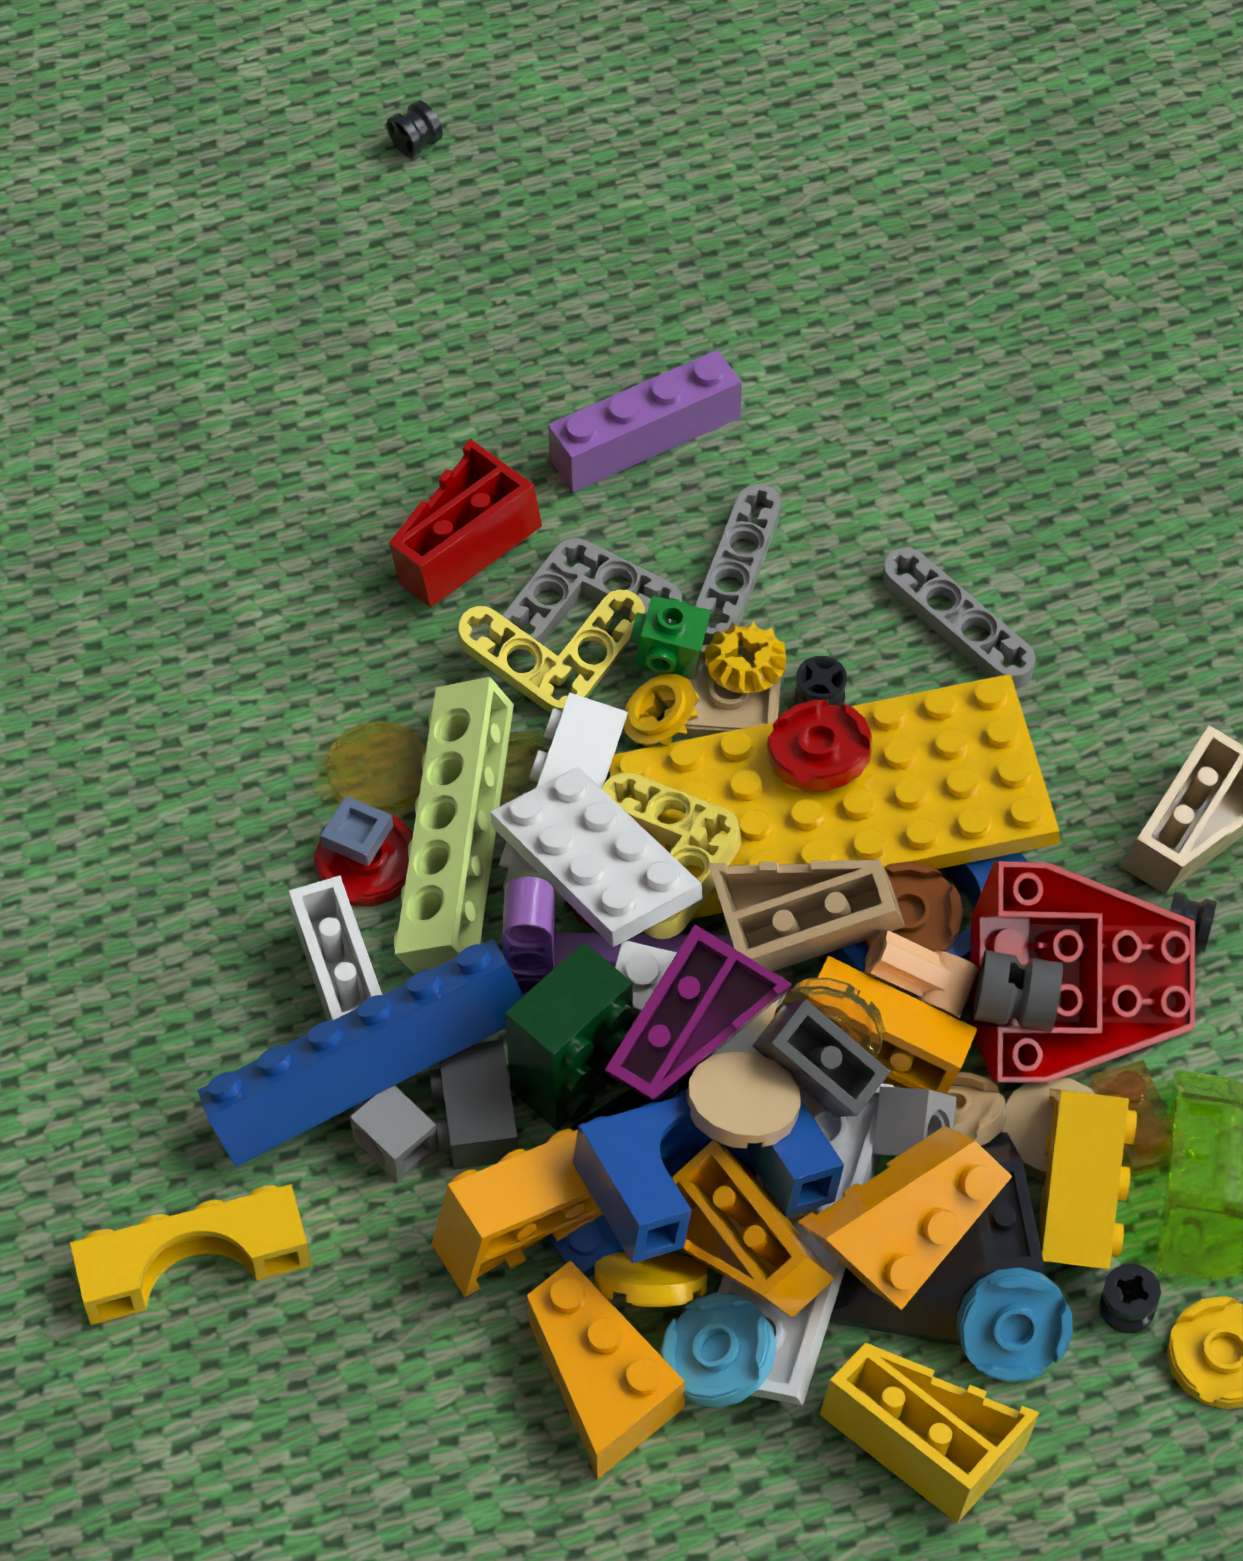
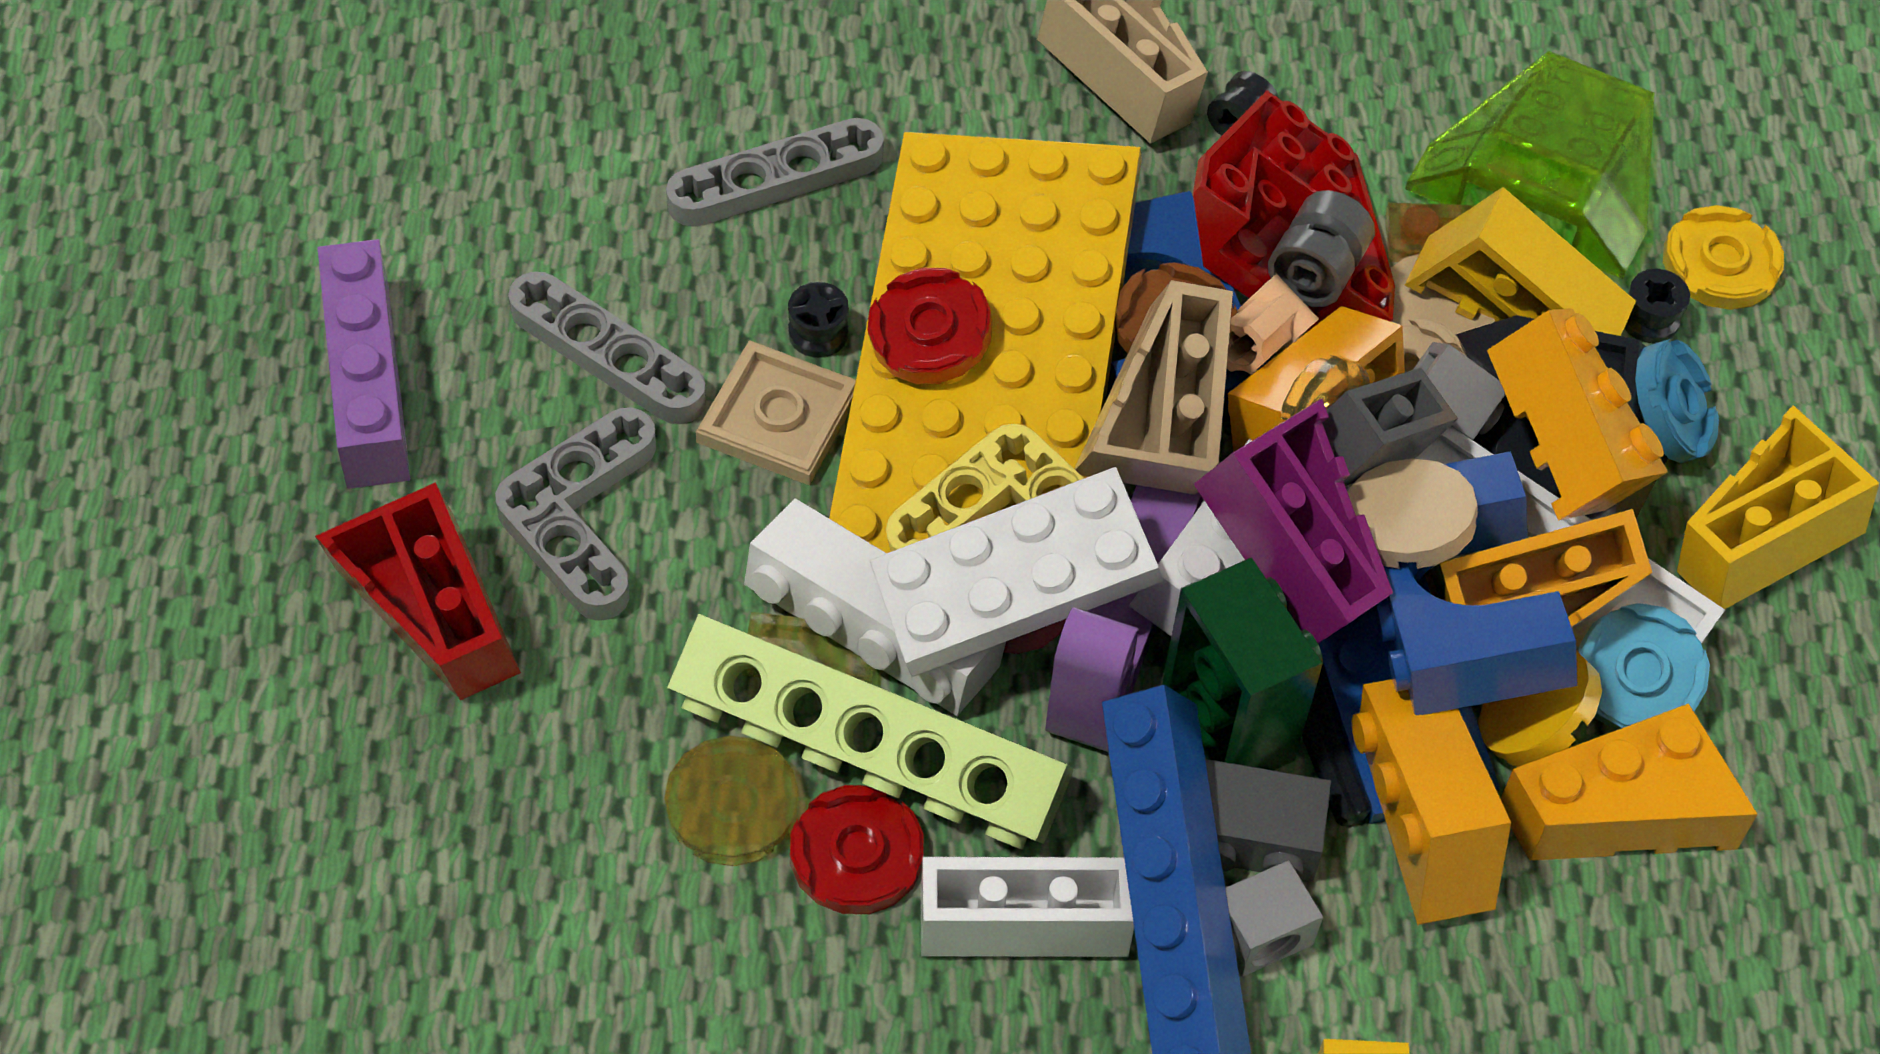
camera: 75 degrees left, 0 degrees up
(356, 830) = (839, 834): sand blue plate -> none
(548, 666) = (677, 554): light yellow beam -> none
(646, 706) = (771, 453): yellow gear -> none
(670, 636) = (706, 424): green brick -> none
(733, 671) = (778, 379): yellow gear -> none

